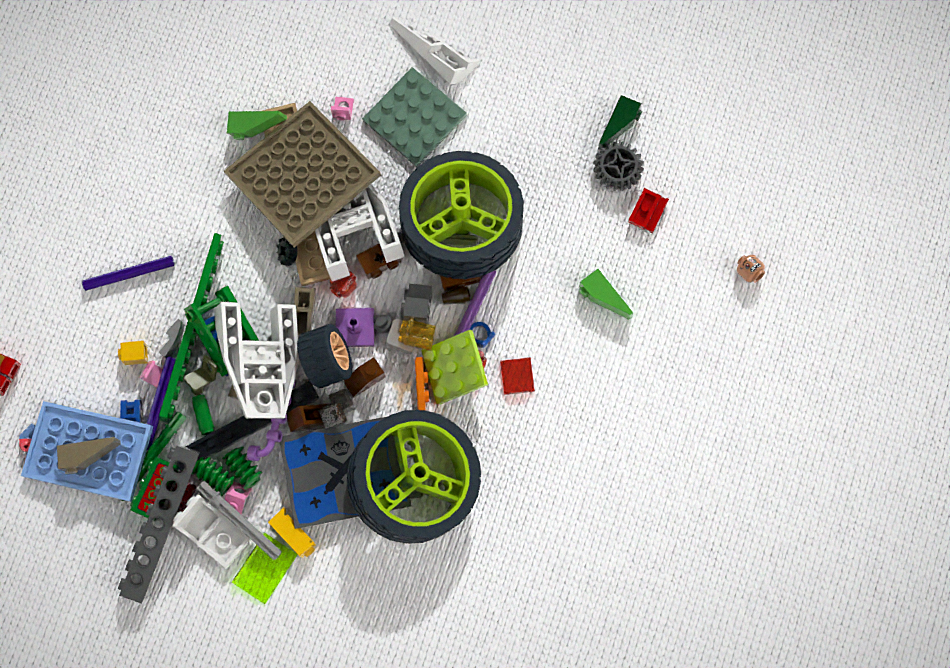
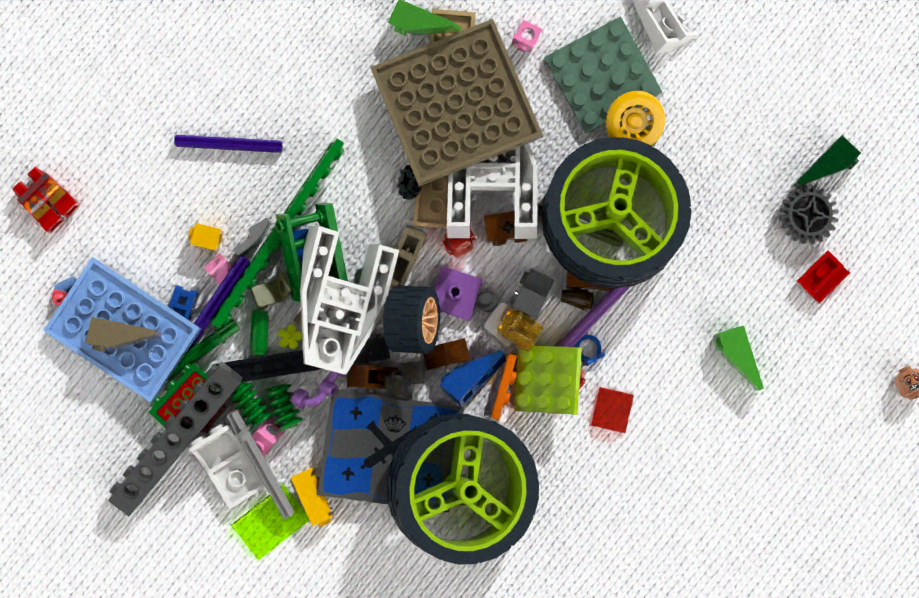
camera: 15 degrees right, 10 degrees up
(230, 410) = (289, 337): none -> neon yellow plant
(390, 388) = (470, 377): none -> blue slope
(452, 139) = (634, 118): none -> yellow wheel

